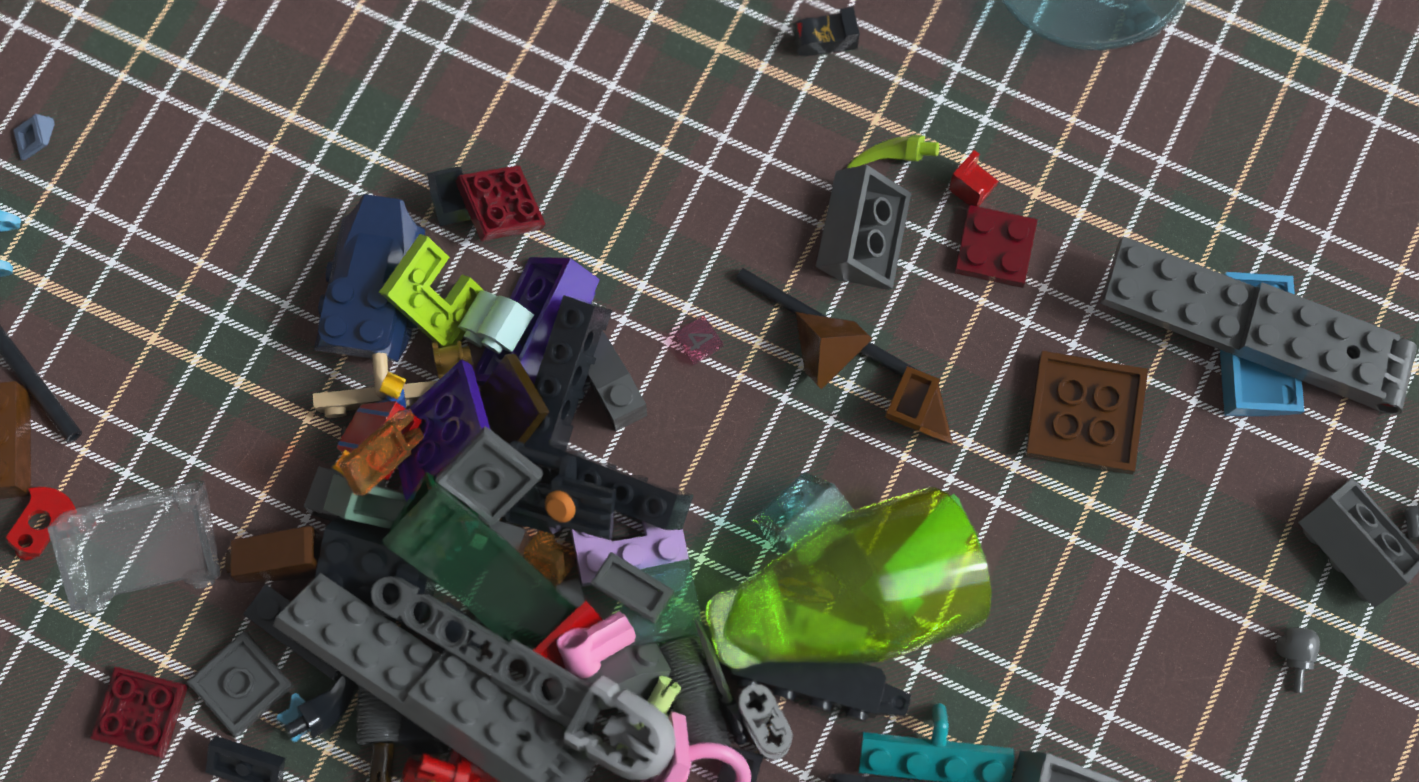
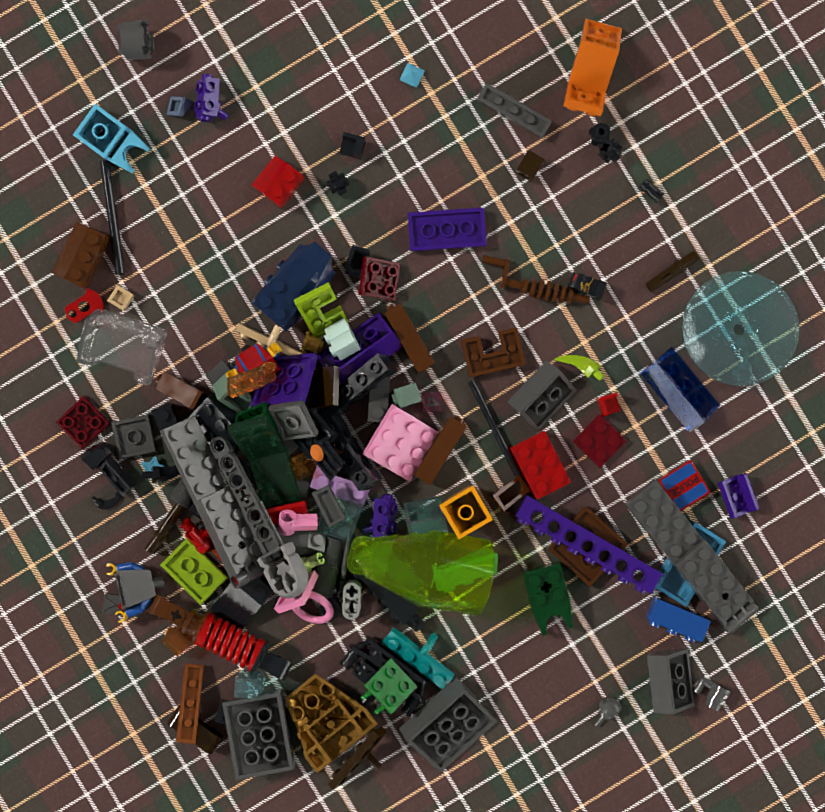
camera: 30 degrees right, 15 degrees up
(75, 100) = (207, 104): none -> dark purple brick
(95, 472) = (120, 298): none -> tan plate
(191, 748) = (97, 454): none -> black rock
(257, 154) = (278, 181): none -> red slope
(341, 39) = (352, 145): none -> black panel
(350, 103) = (337, 183): none -> black gear
(561, 76) = (447, 229): none -> dark purple plate
(617, 269) = (409, 337): none -> reddish brown brick
(651, 349) = (406, 395): none -> sand green slope
(687, 426) = (400, 442): none -> bright pink plate
(730, 552) = (384, 517): none -> dark purple brick
(739, 237) = (507, 358): none -> reddish brown plate
(745, 83) = (538, 289): none -> reddish brown piece
(758, 403) = (440, 449): none -> reddish brown brick
(828, 345) = (489, 443): reddish brown slope -> none
(862, 455) = (465, 511): none -> light orange slope
(929, 330) = (539, 465): none -> red brick
(1066, 100) = (680, 389): none -> clear blue slope
(1086, 534) = (550, 601): none -> dark green brick
(1173, 226) = (684, 485): none -> piece
(1214, 389) = (650, 576): none -> dark purple brick
(1262, 196) = (738, 495): none -> dark purple bracket
(1306, 439) = (677, 620): none -> blue brick

